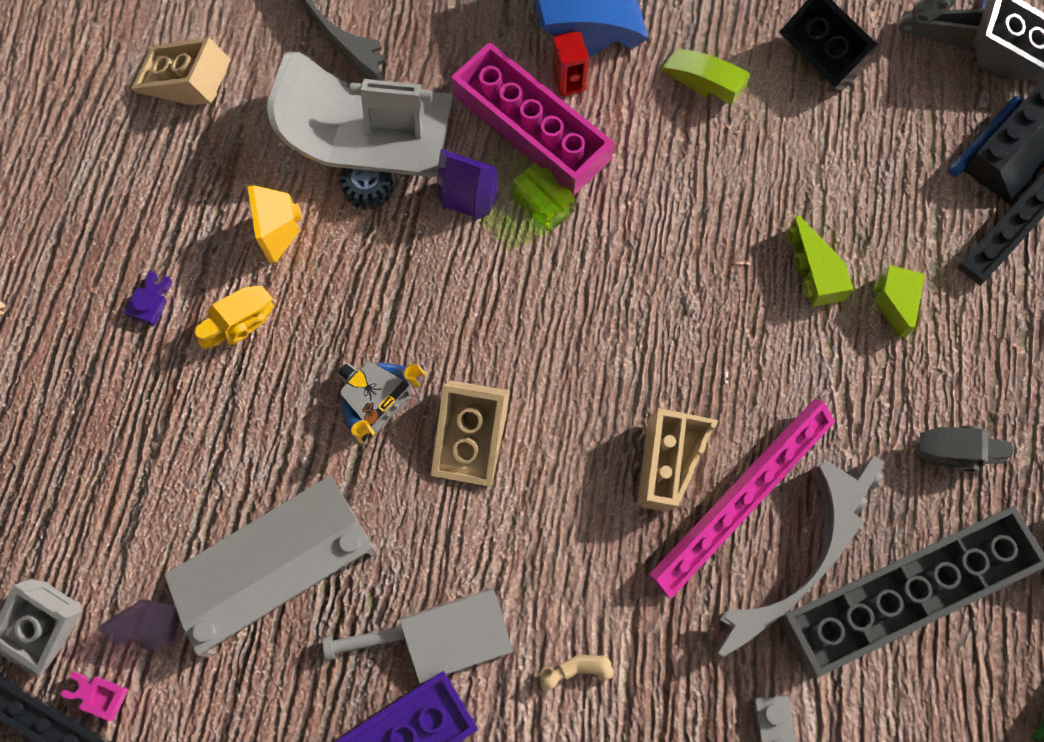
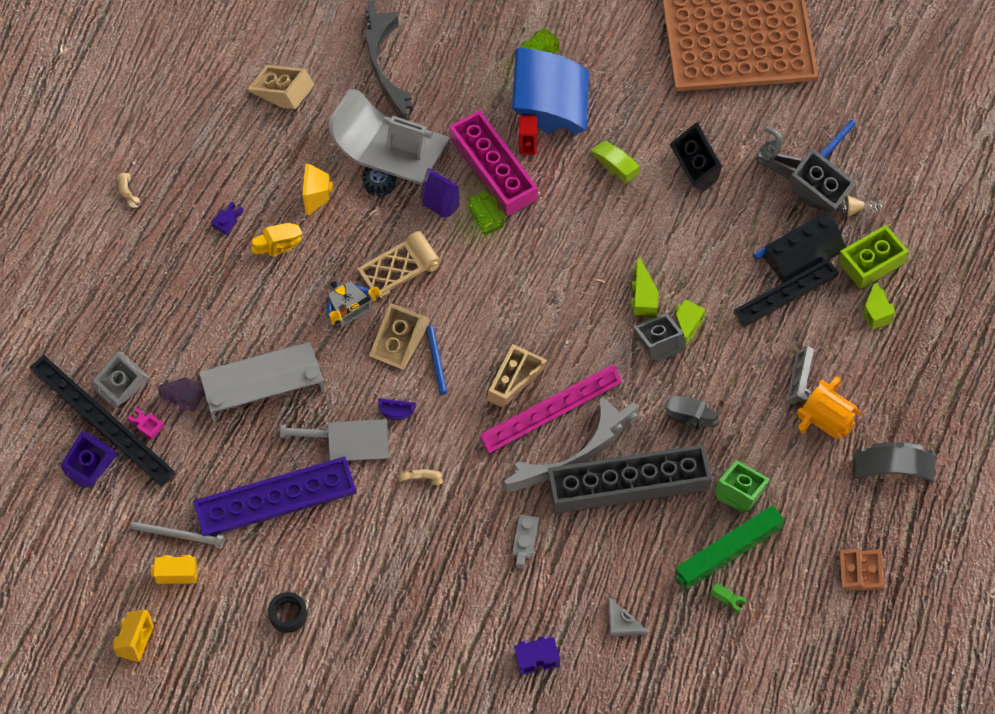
camera: 15 degrees right, 10 degrees down
(463, 285) = (421, 254): none -> tan piece
(500, 561) = (396, 409): none -> dark purple plate
(539, 456) = (436, 360): none -> blue bar
(868, 332) = (660, 337): none -> dark grey slope

